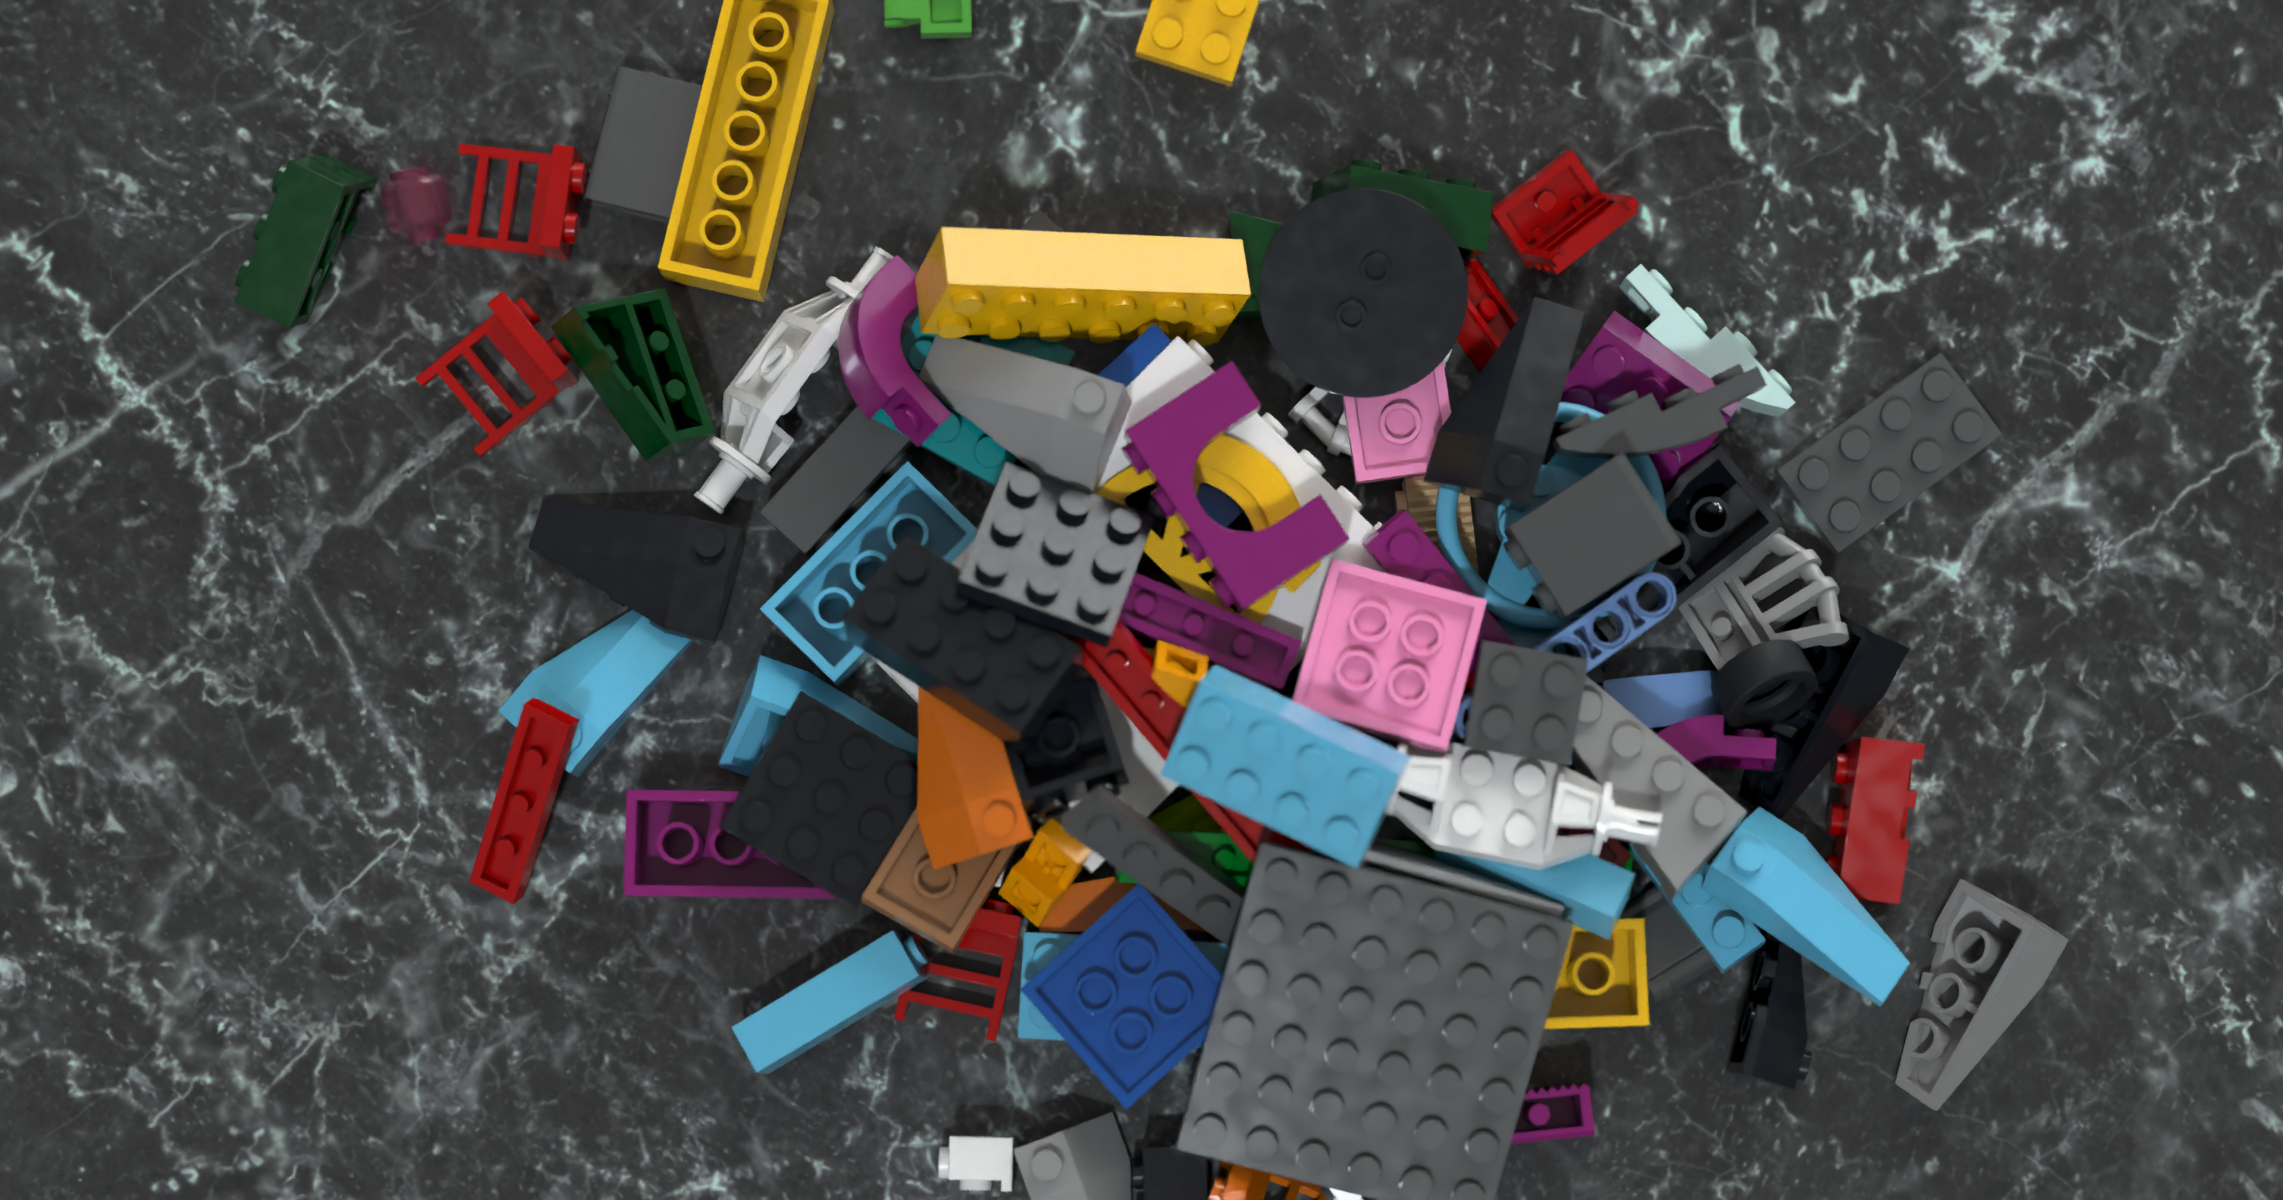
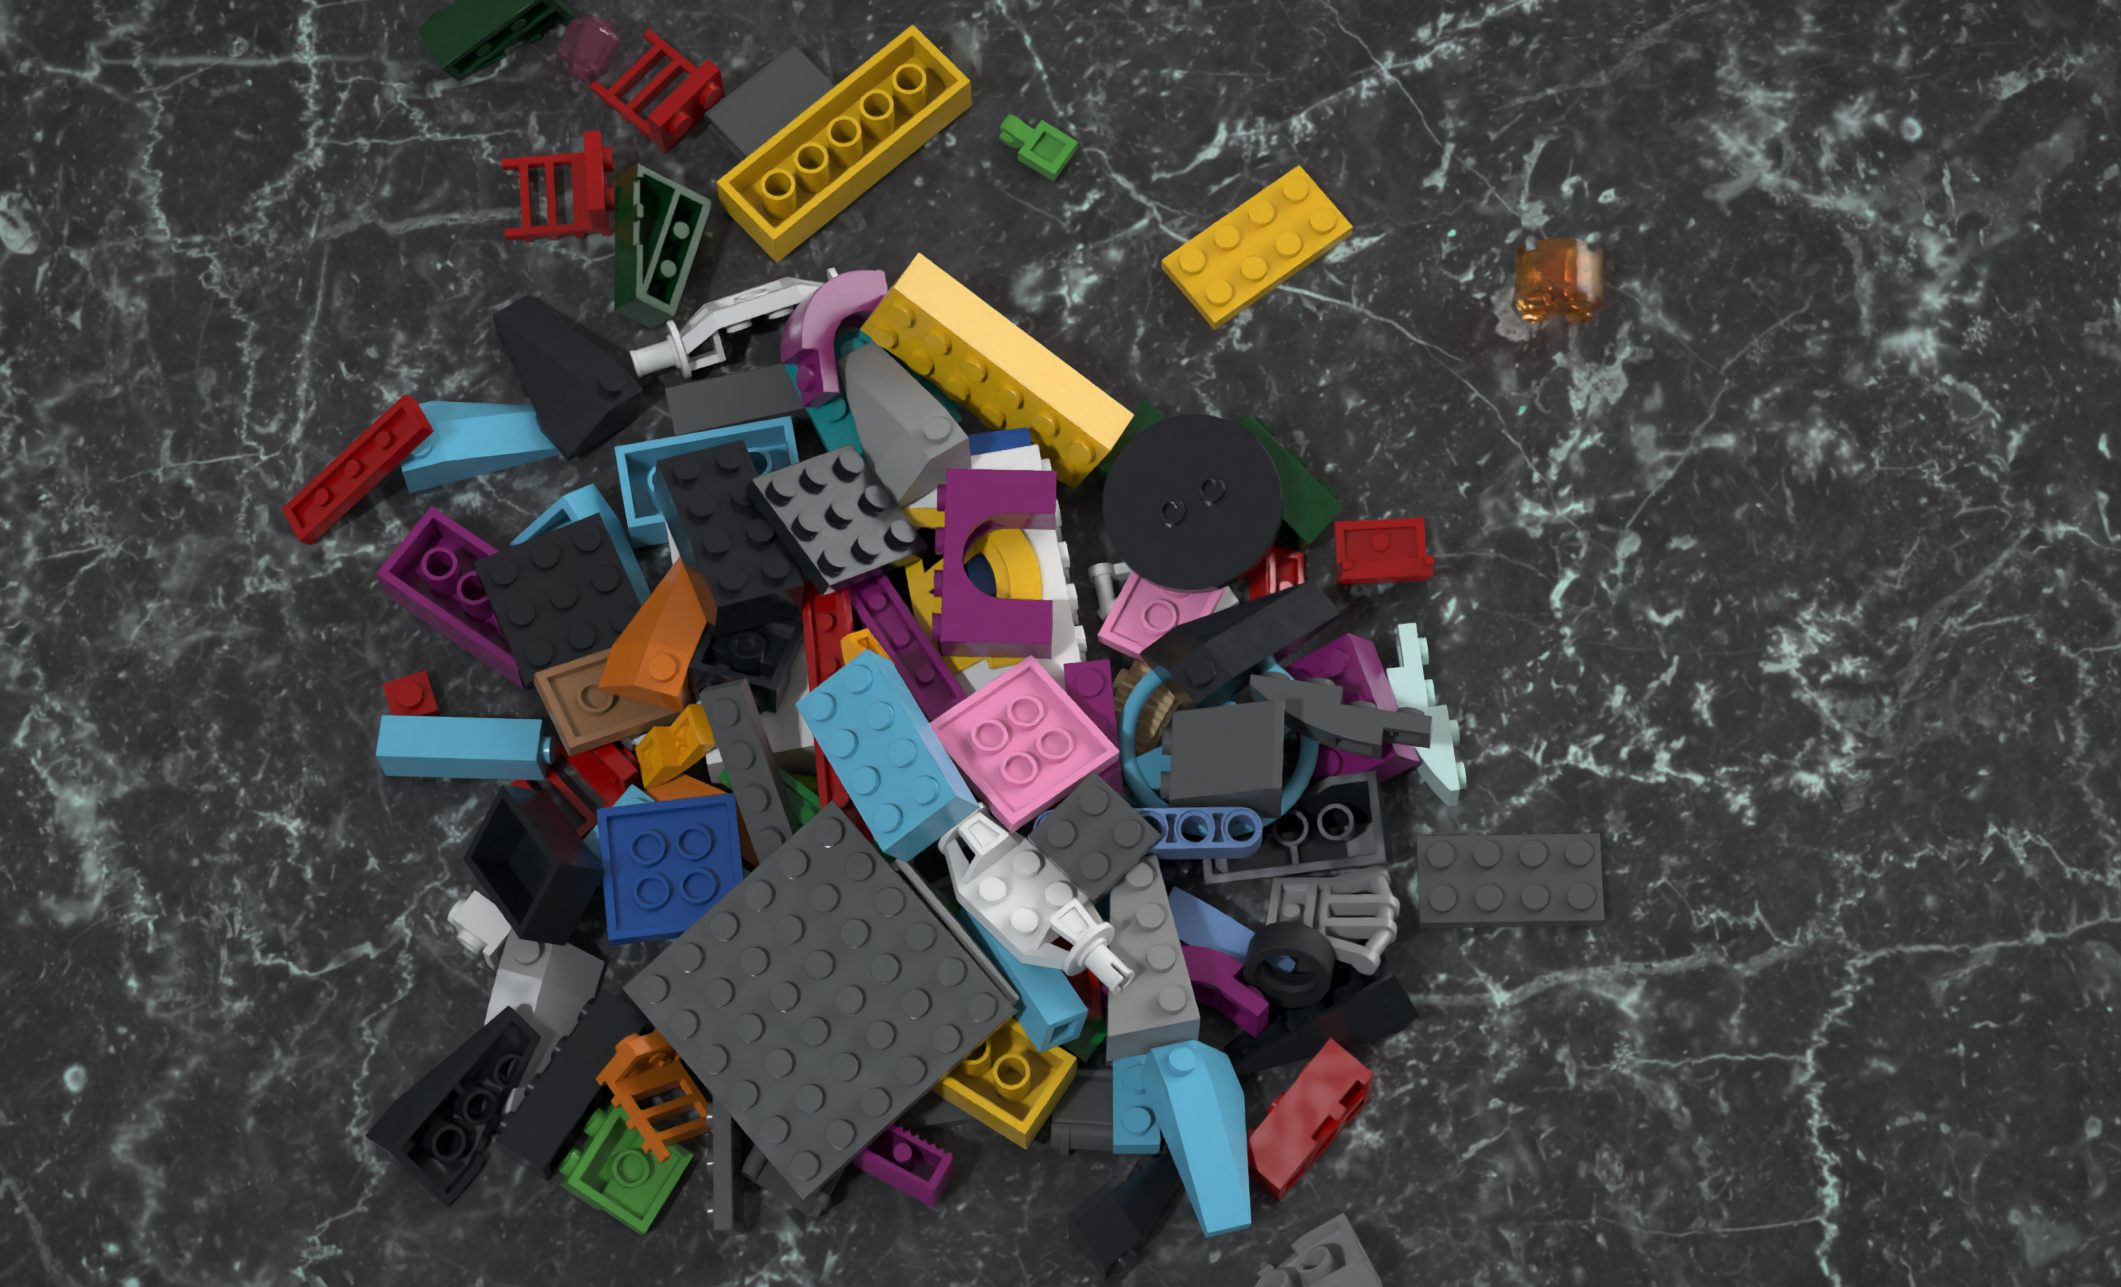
camera: 40 degrees right, 15 degrees down
(738, 984) = (411, 696): none -> red plate
(996, 1081) = (533, 865): none -> black piece

